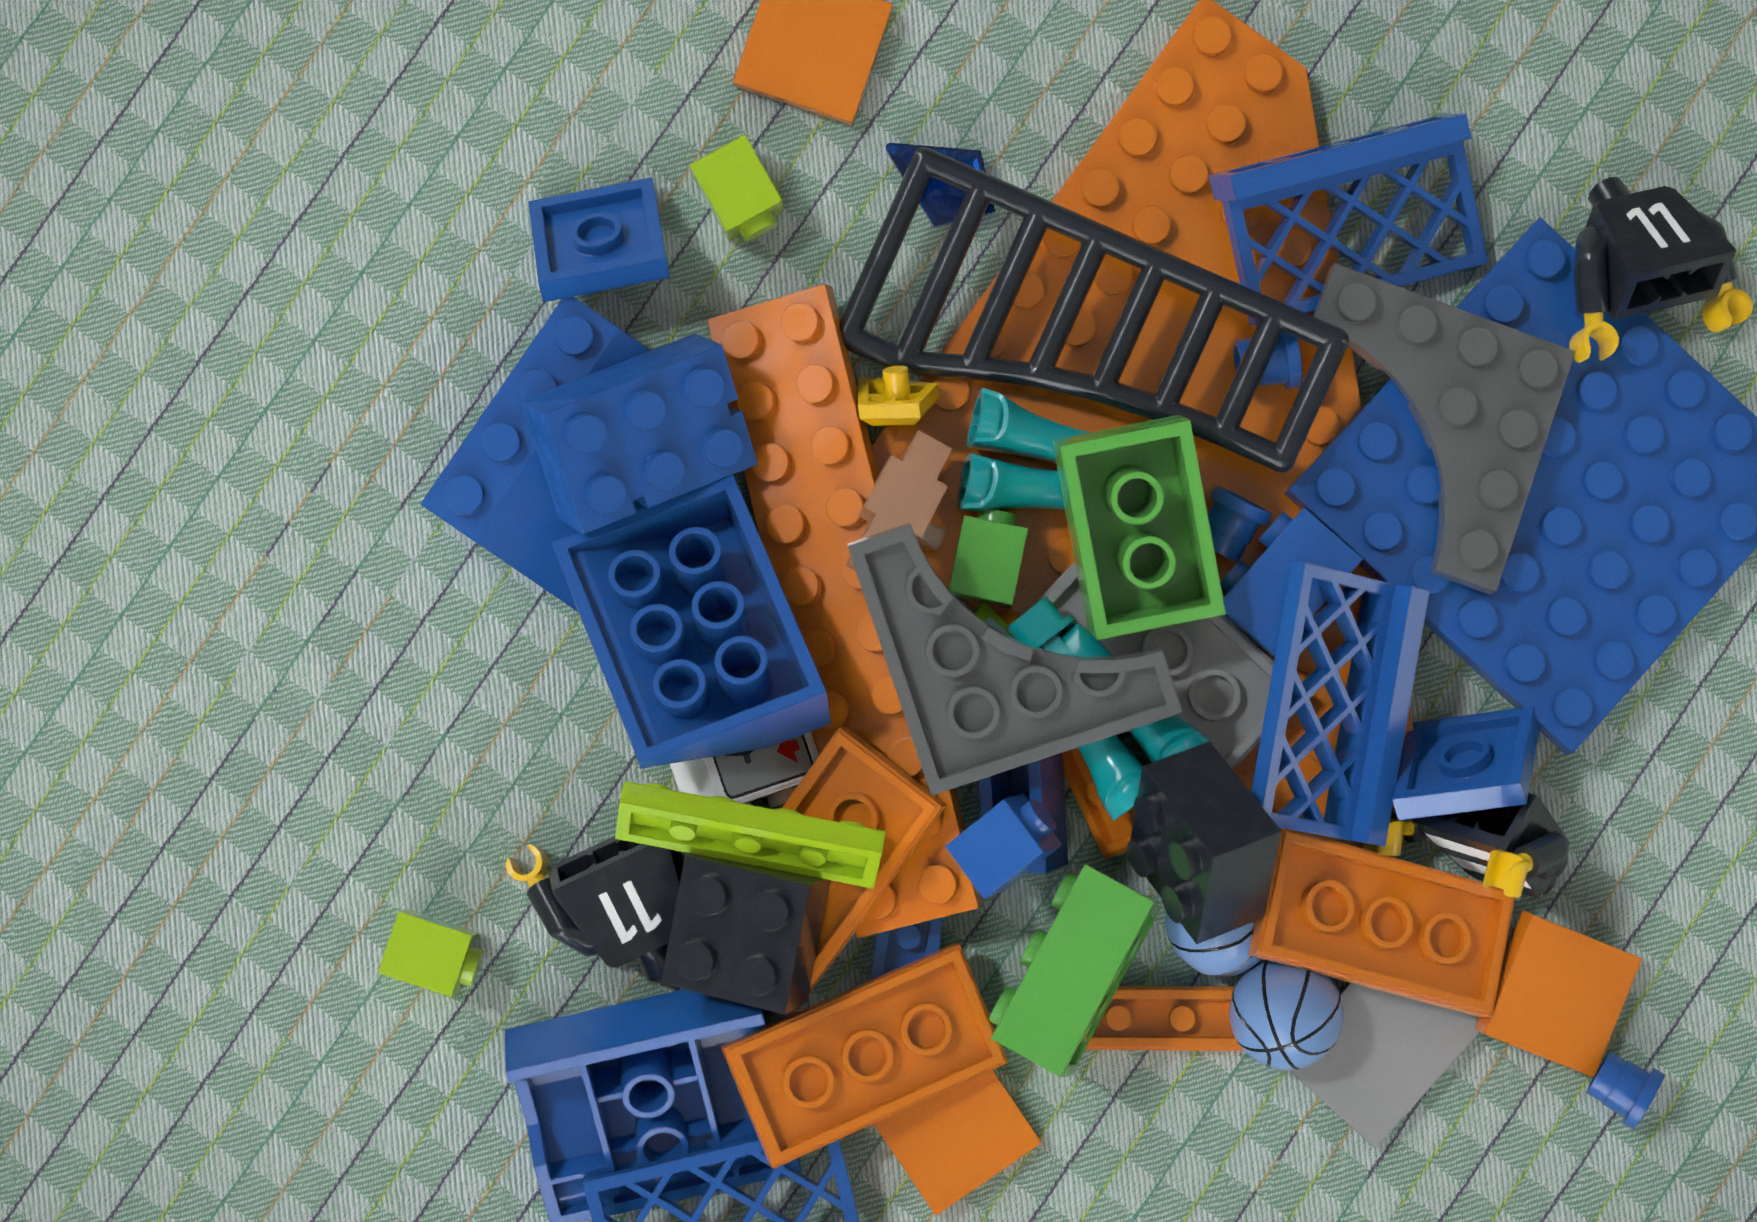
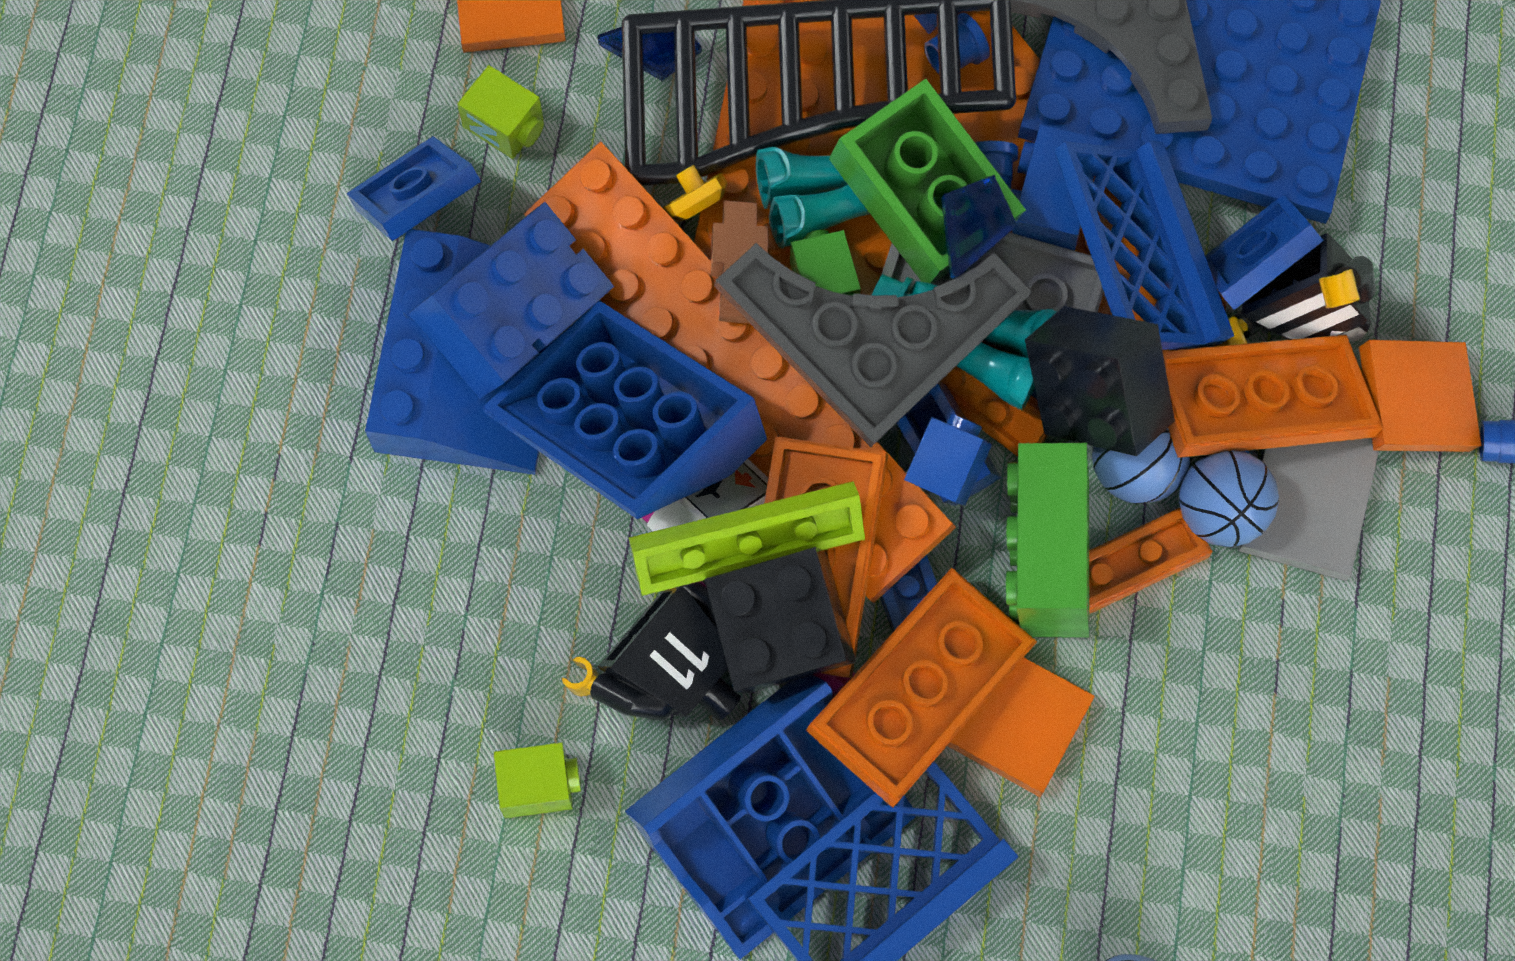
camera: 25 degrees left, 15 degrees down
(1158, 610) = (974, 222): none -> clear blue piece

